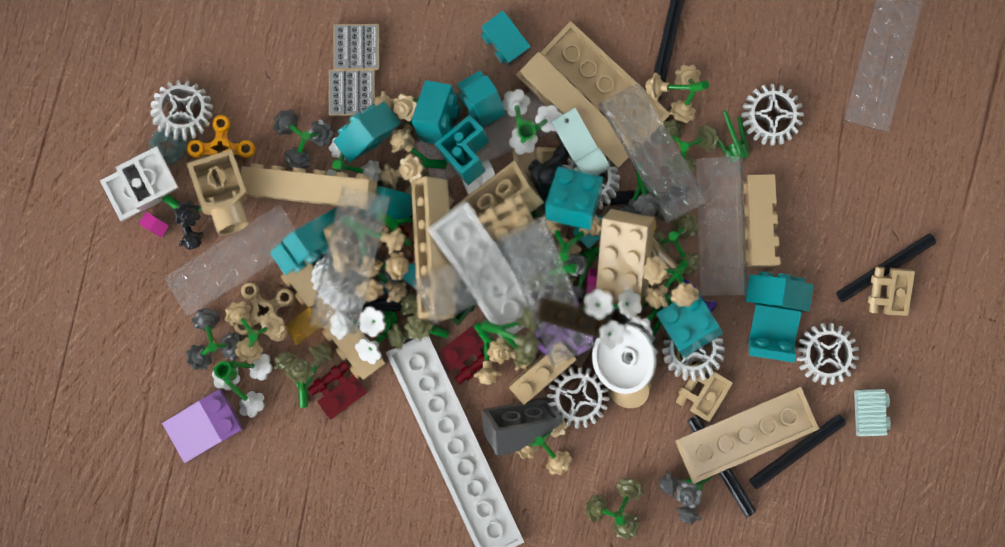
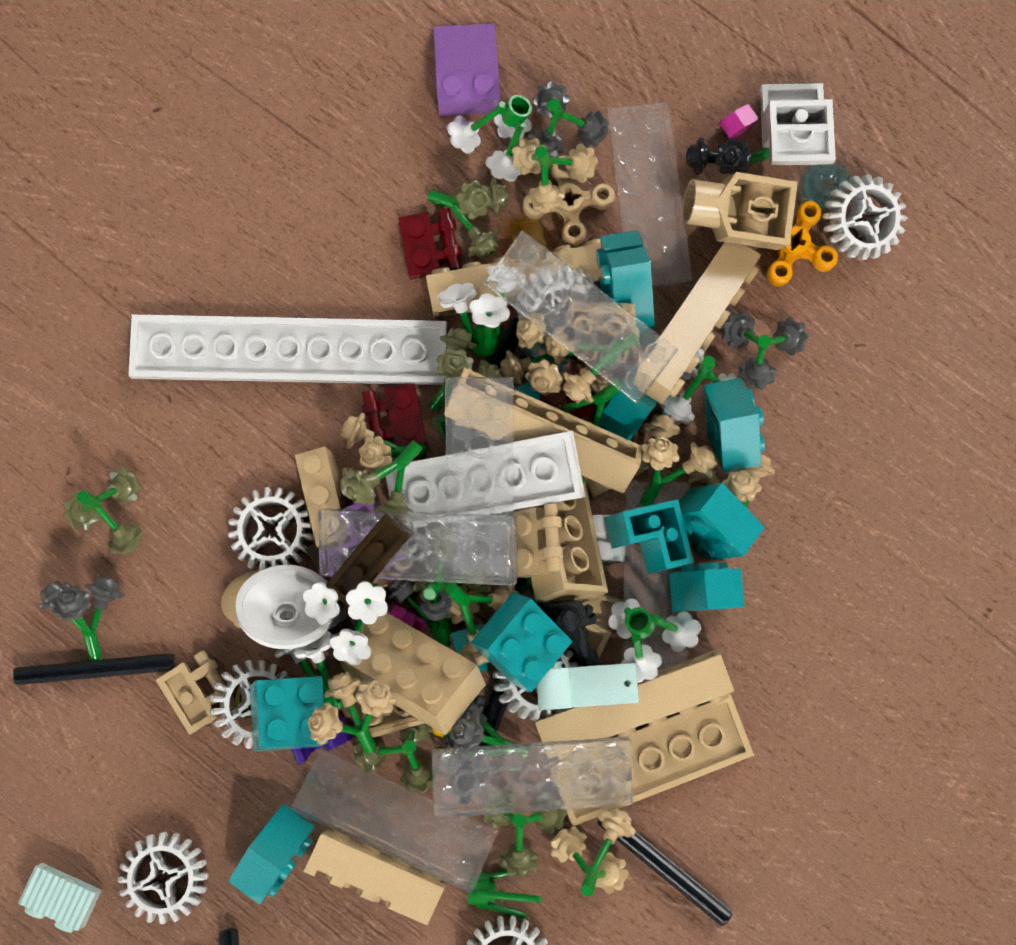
camera: 115 degrees right, 5 degrees down
(350, 91) = (792, 434): light grey tile -> none
(356, 47) = (845, 467): light grey tile -> none
(505, 38) = (770, 660): teal brick -> none
(518, 425) = (271, 433): dark grey slope -> none
(559, 461) = (243, 440): tan plant -> none
(746, 435) = (113, 720): tan plate -> none
(774, 332) = (223, 819): teal bracket -> none
(797, 451) = (61, 776): black axle -> none

